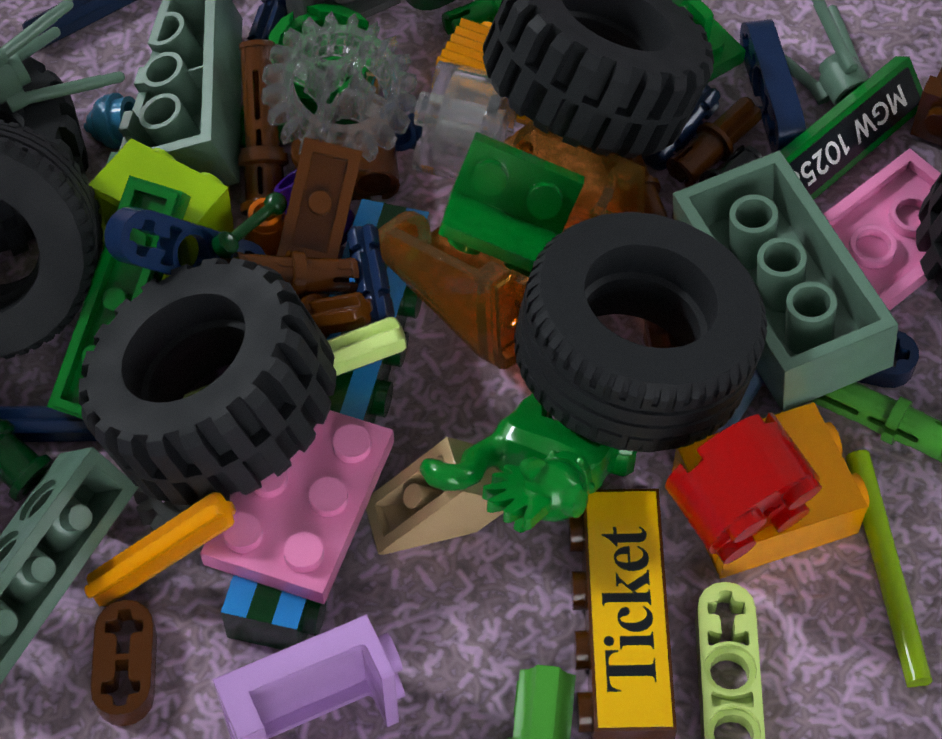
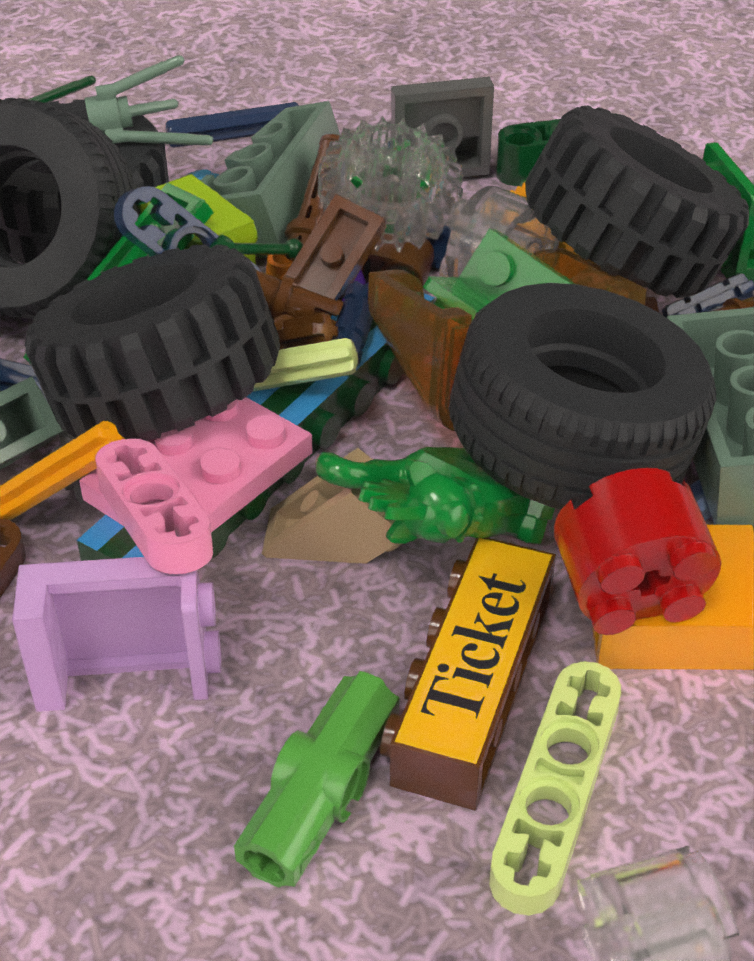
camera: 20 degrees right, 15 degrees down
(311, 600) = (153, 524): none -> bright pink beam

